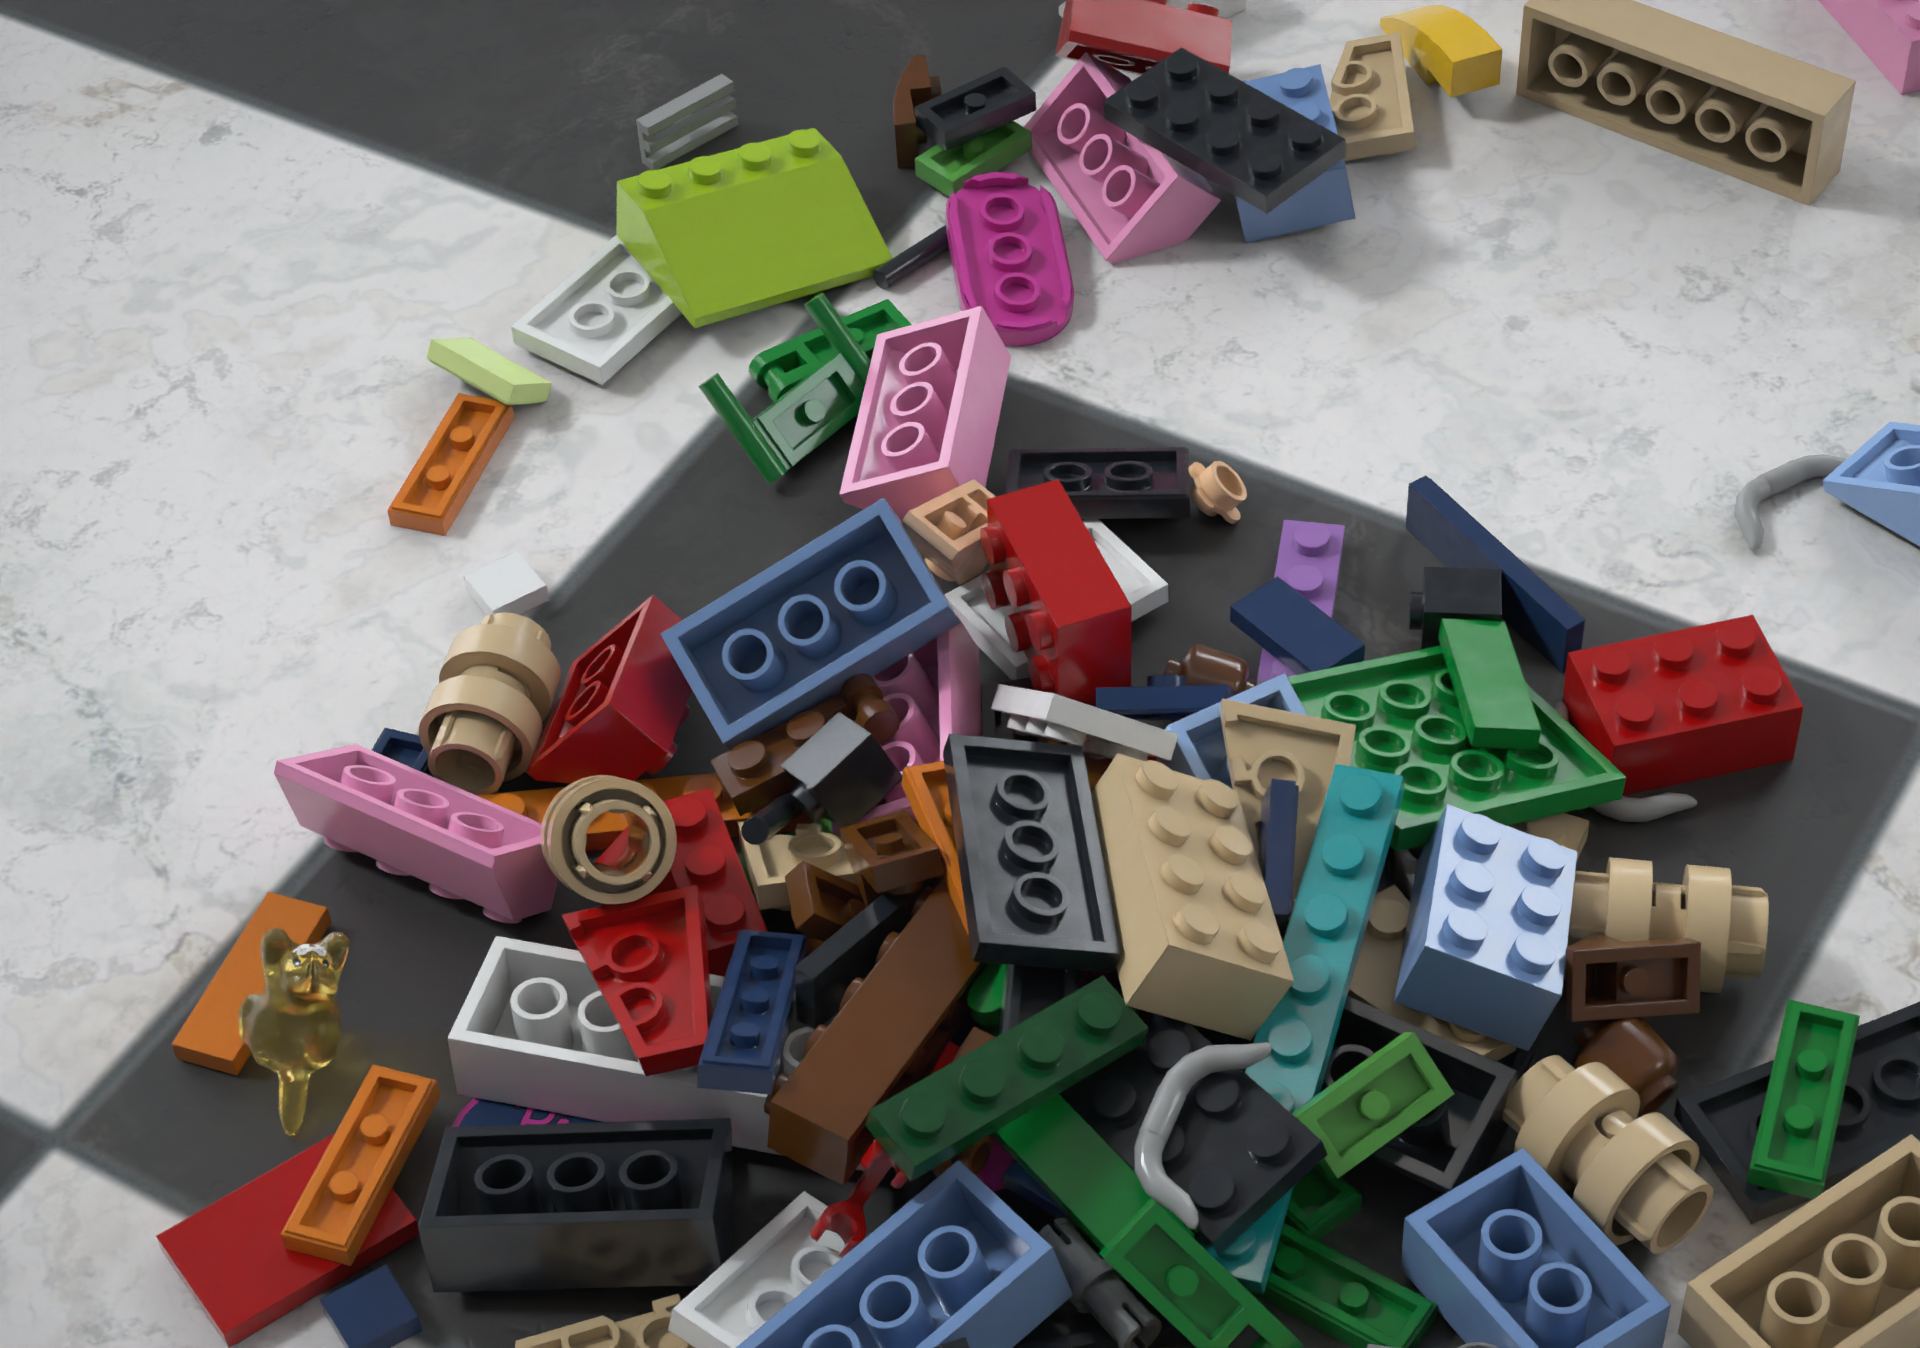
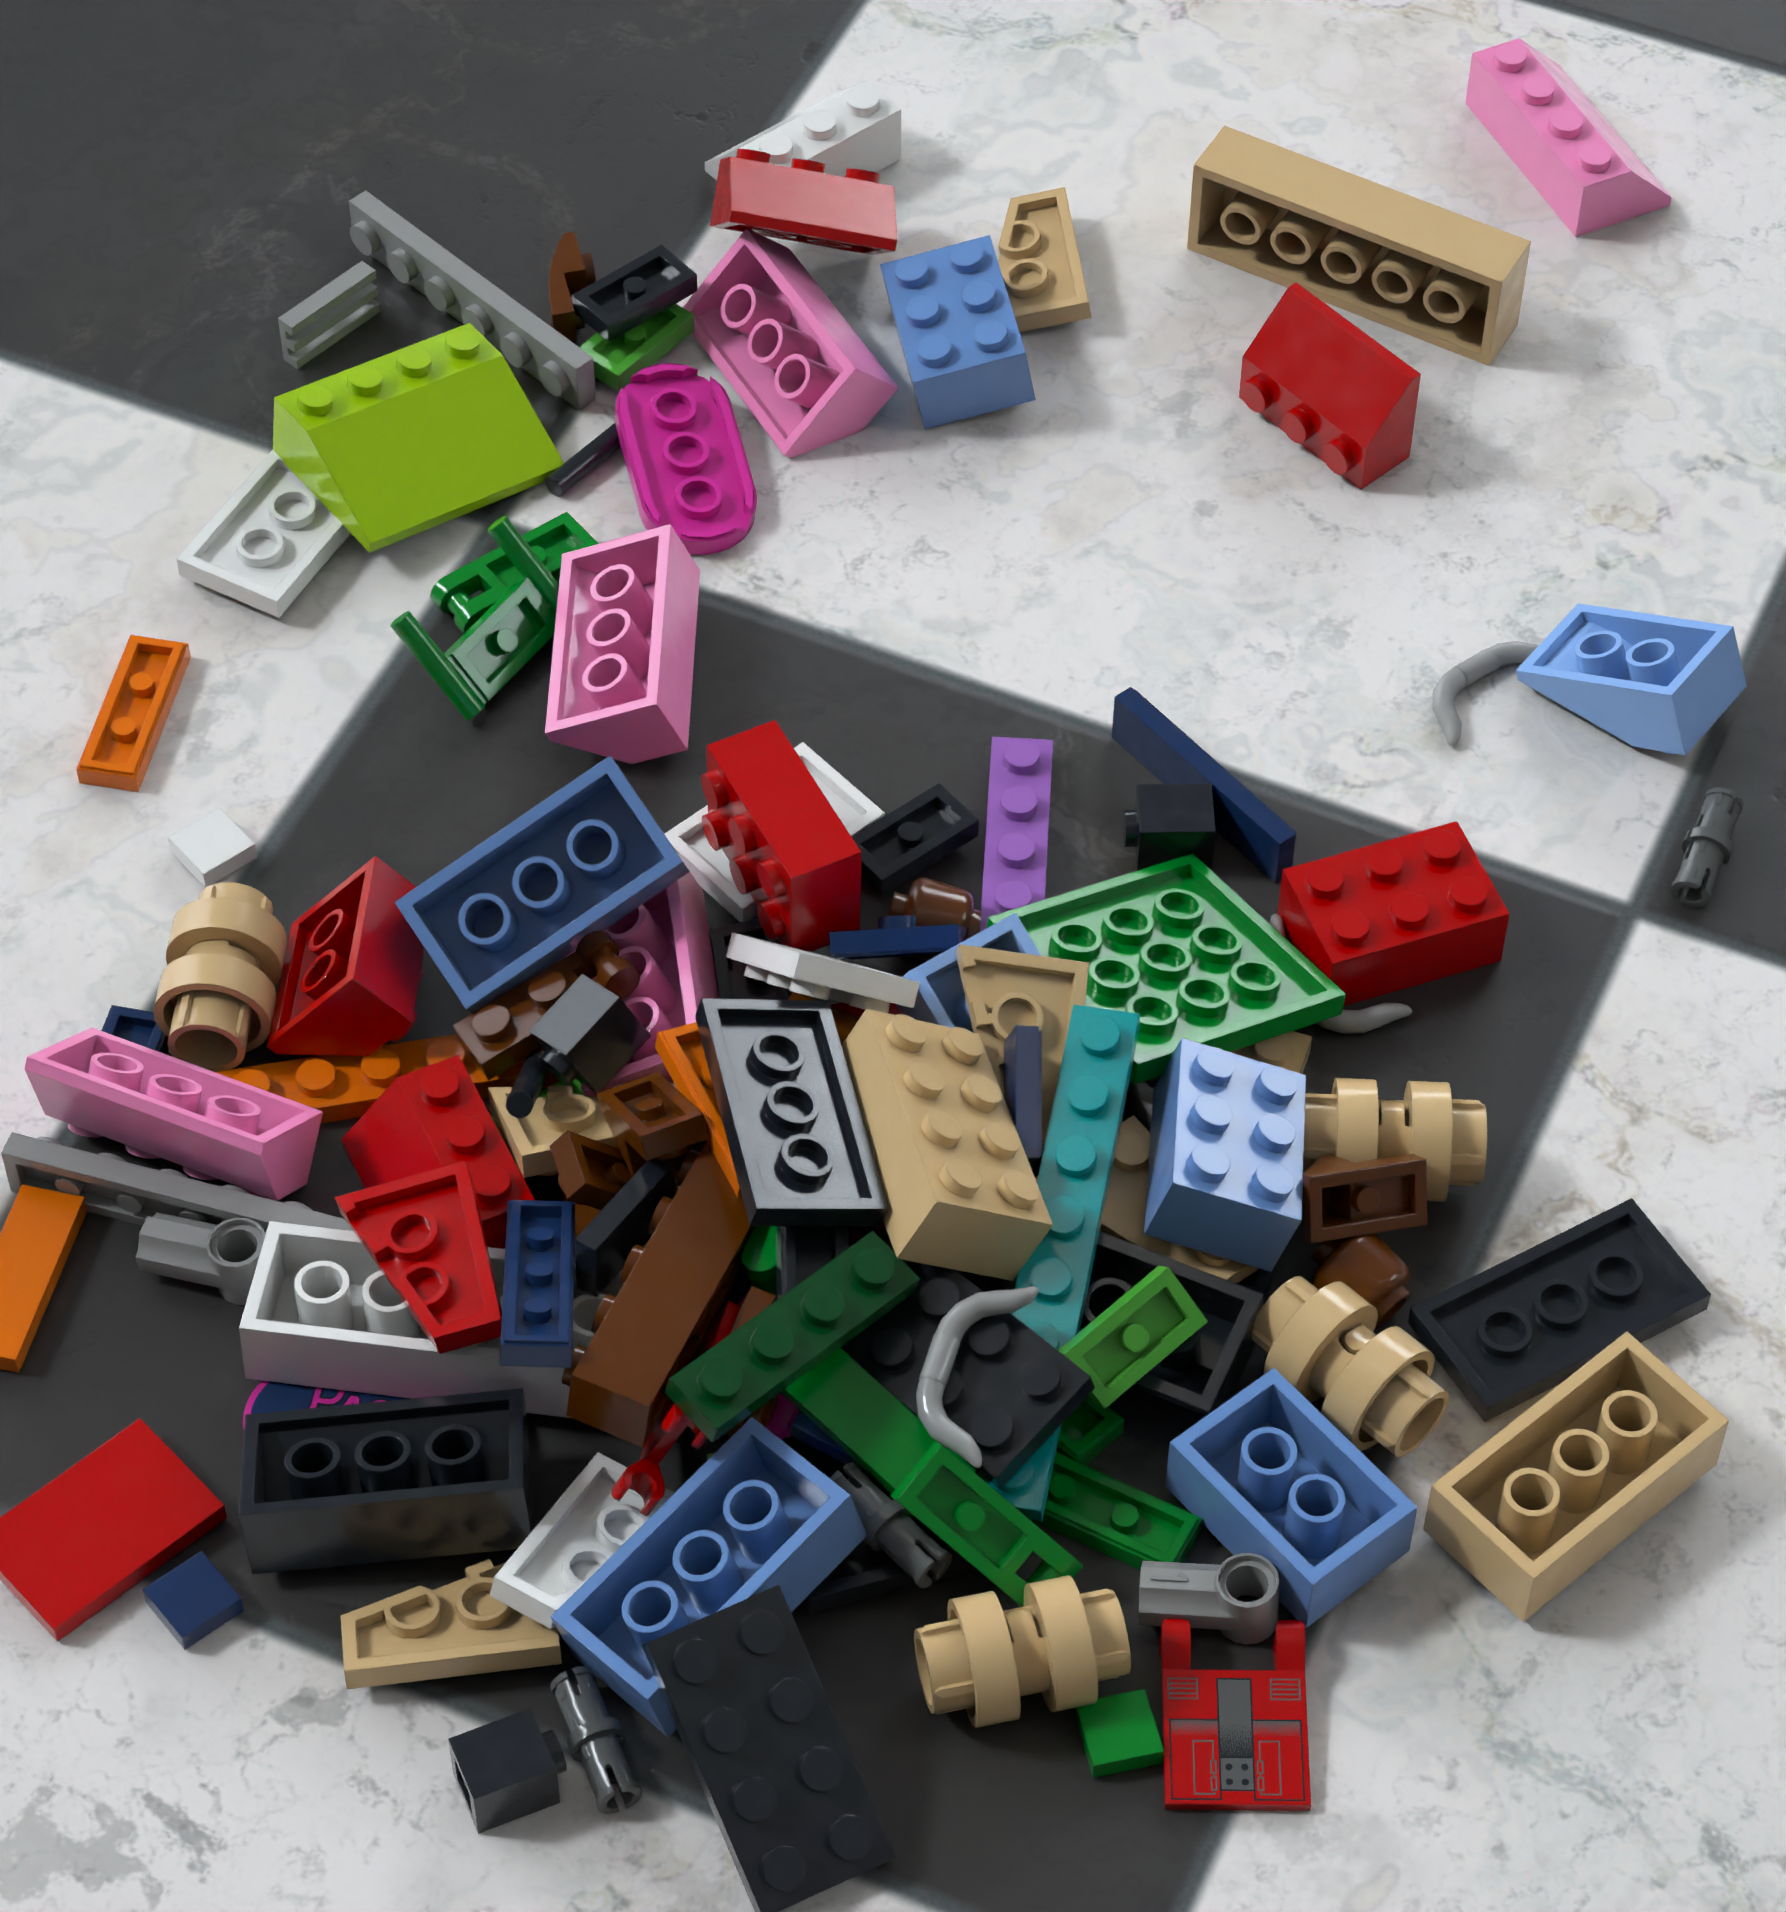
camera: 10 degrees left, 5 degrees up
(296, 1019) = (76, 1316): clear yellow animal -> none
(360, 1165) = (163, 1455): orange tile -> none
(389, 909) = (135, 1191): none -> light grey plate
(427, 964) = (202, 1252): none -> light grey piece
(488, 371) = (159, 609): yellowish green tile -> none
(650, 839) = (408, 1127): tan piece -> none
(813, 104) = (472, 299): none -> light grey plate
(949, 531) = (671, 769): light nougat slope -> none
(1110, 480) = (808, 703): black tile -> none
(1188, 611) = (914, 838): none -> black plate
(1217, 490) = (923, 708): light nougat plate -> none
(1225, 129) = (899, 316): black plate -> none
(1294, 629) = (1015, 857): dark blue tile -> none
(1447, 48) = (1112, 201): yellow slope -> none
(1489, 684) = (1208, 905): green tile -> none
(1649, 213) = (1331, 388): none -> red slope
(1803, 1100) = (1527, 1302): green tile -> none

